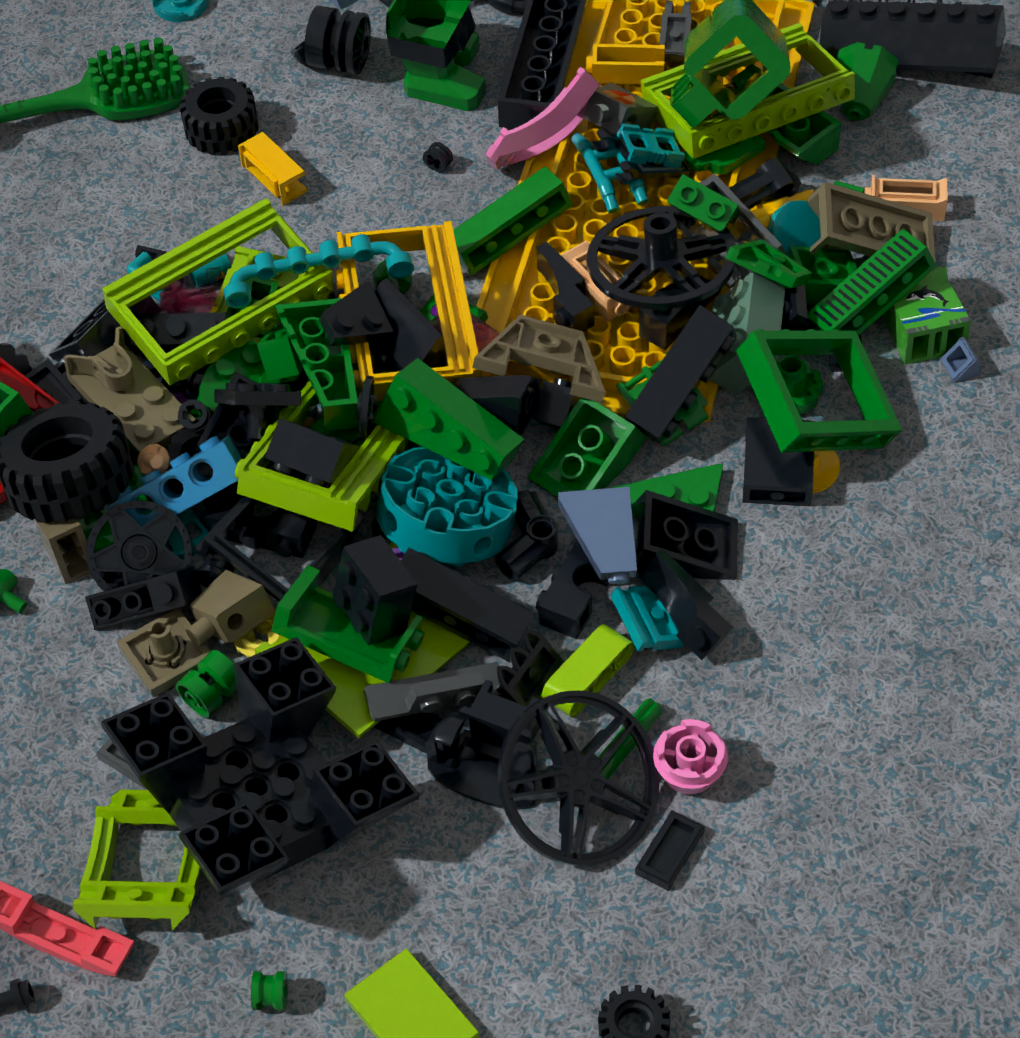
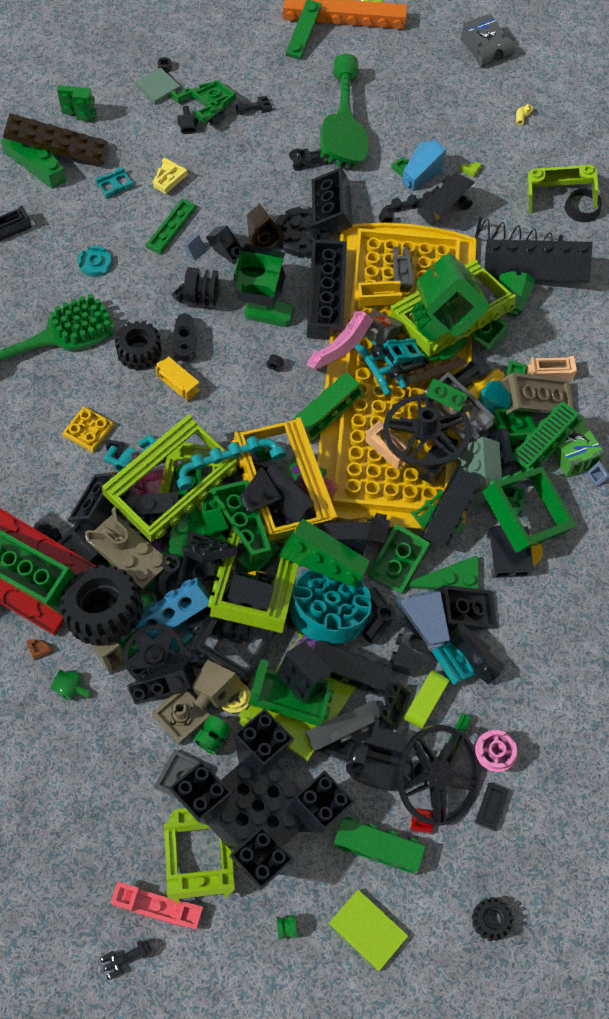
camera: 15 degrees left, 10 degrees up
(113, 230) = (88, 429): none -> yellow tile
(153, 457) = (151, 593): light nougat plate -> none
(297, 112) = (184, 327): none -> black piece
(366, 407) = (275, 550): black wheel -> none
(456, 884) = (379, 845): none -> green brick
(539, 866) = (418, 826): none -> red tile
(548, 347) = (373, 495): dark tan wing -> none
(570, 303) = (377, 464): black slope -> none
(726, 167) = (434, 369): none -> dark brown plate
(769, 262) = (491, 430): green wing -> none

